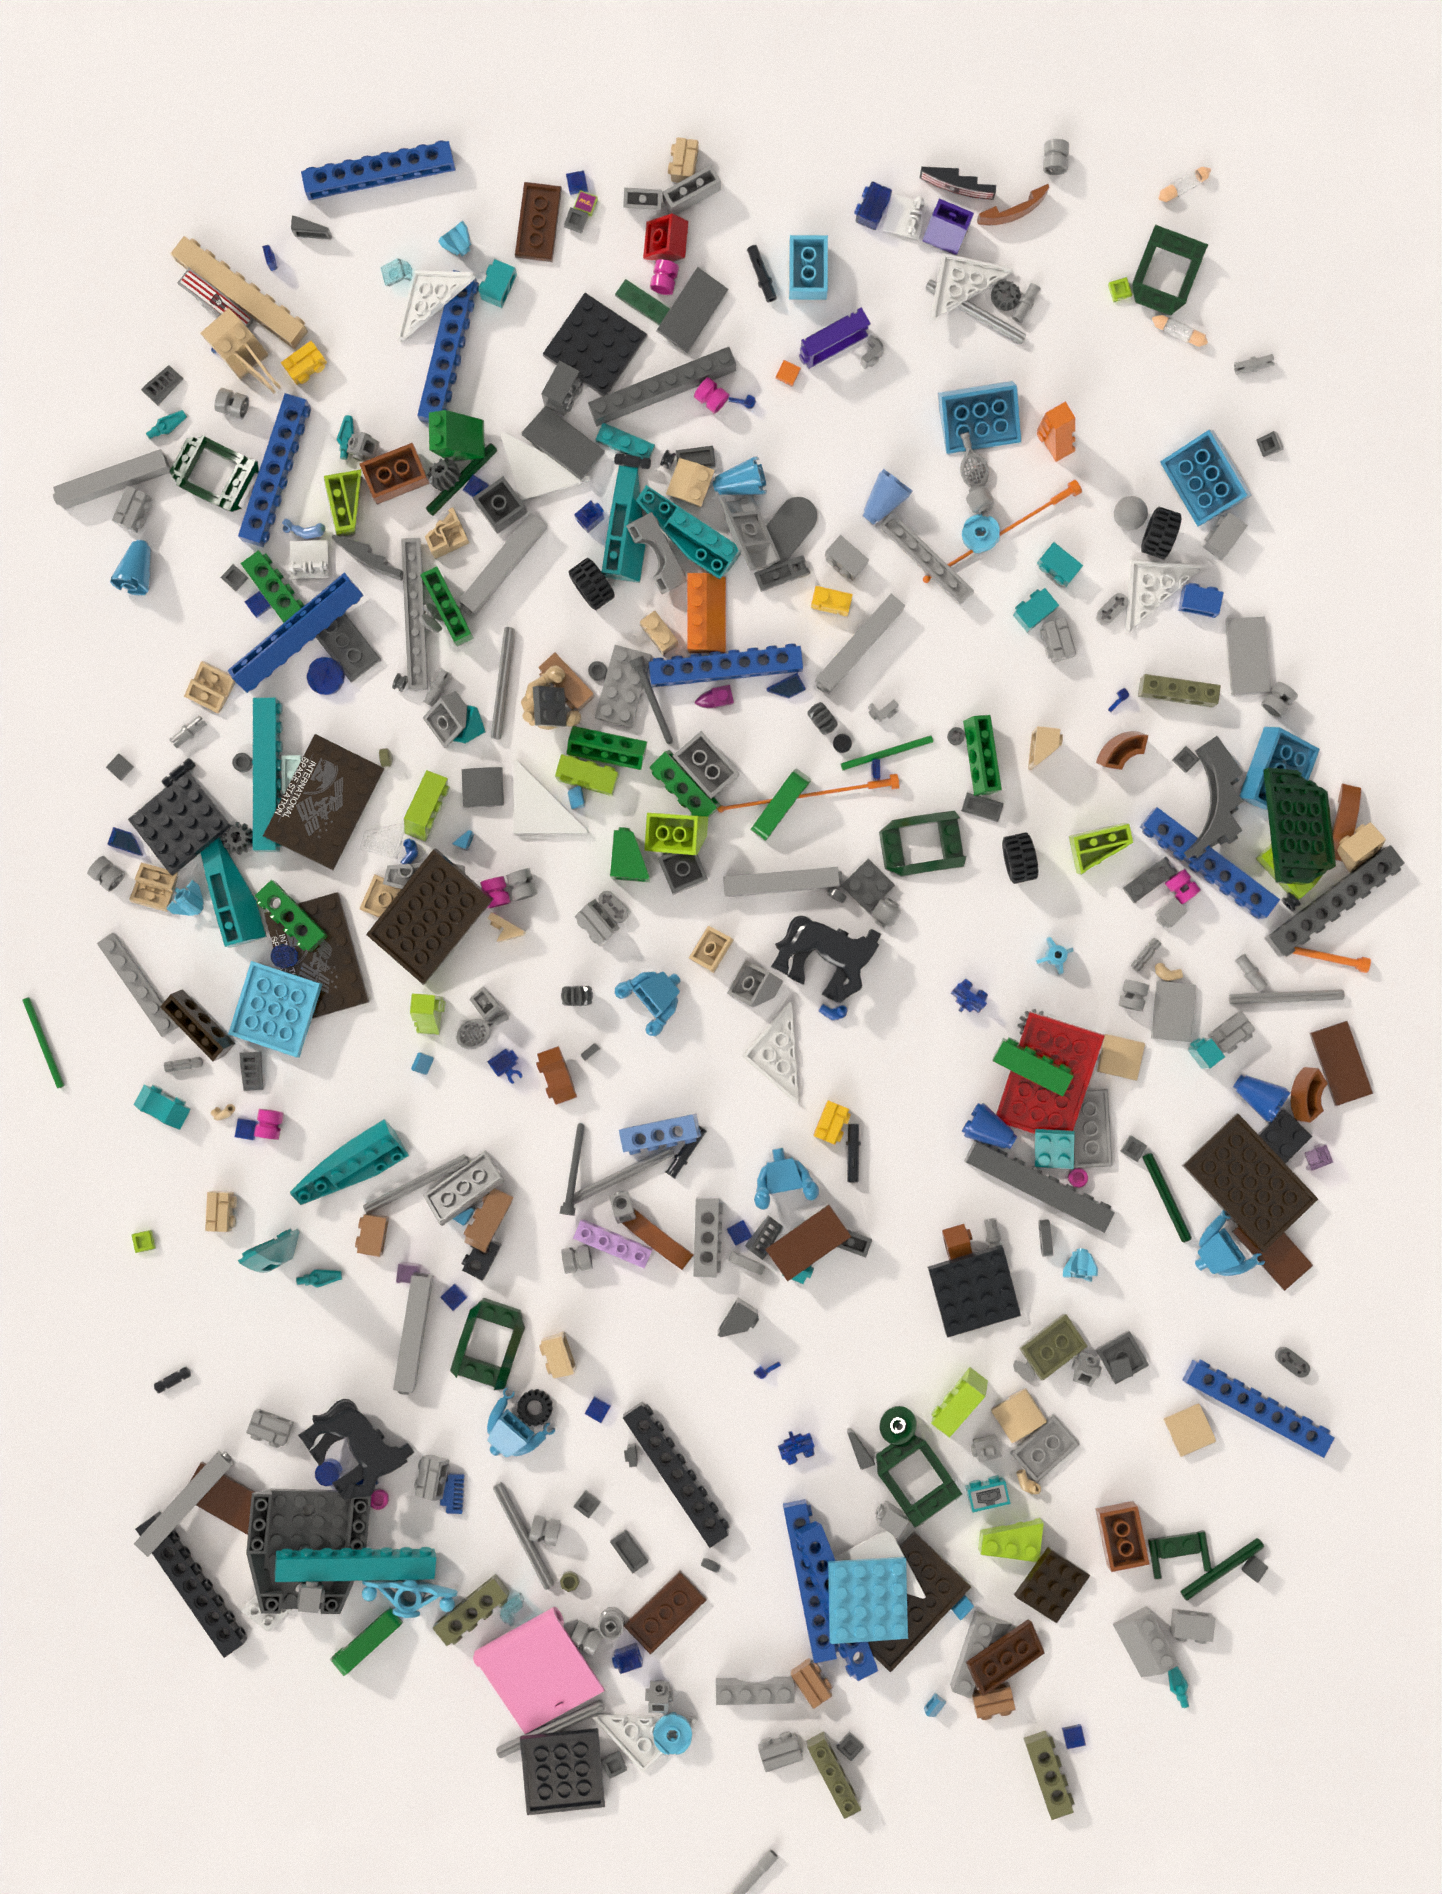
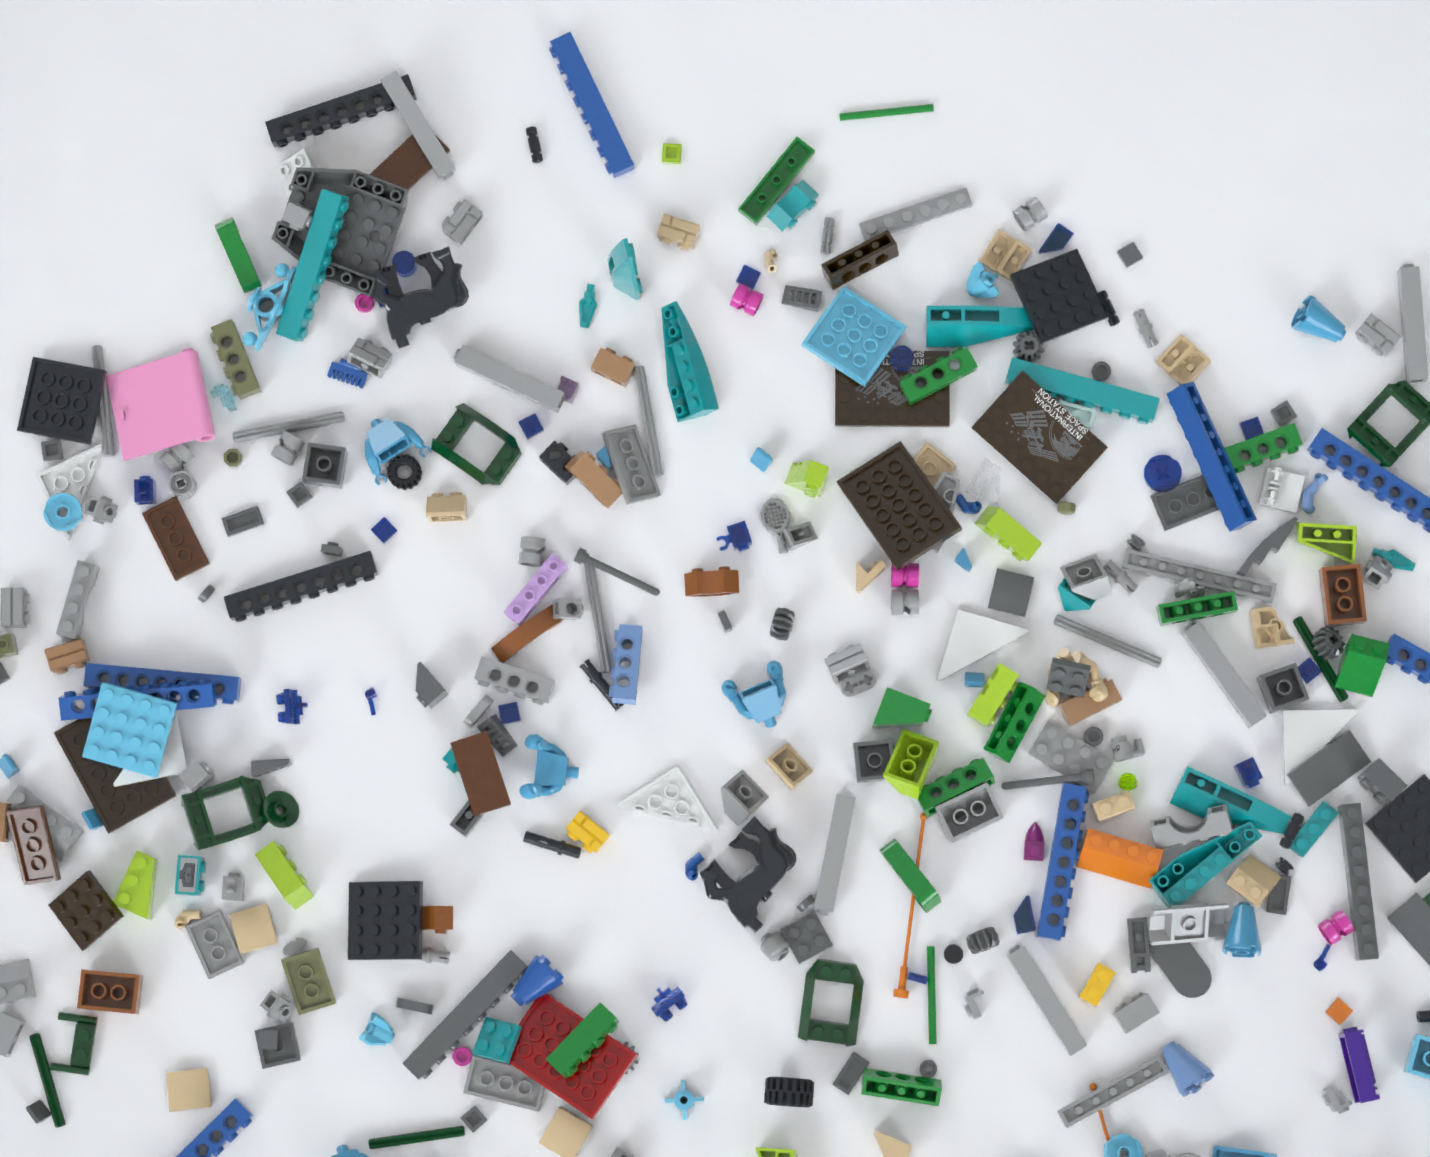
camera: 110 degrees right, 5 degrees down
(115, 1335) = (592, 105): none -> blue brick
(141, 1130) = (776, 180): none -> green piece
(551, 1488) = (324, 465): none -> dark grey brick
(591, 584) = (1178, 753): black tyre -> none
(602, 639) = (1122, 748): none -> light grey piece
(631, 626) = (1127, 781): none -> clear neon green plate

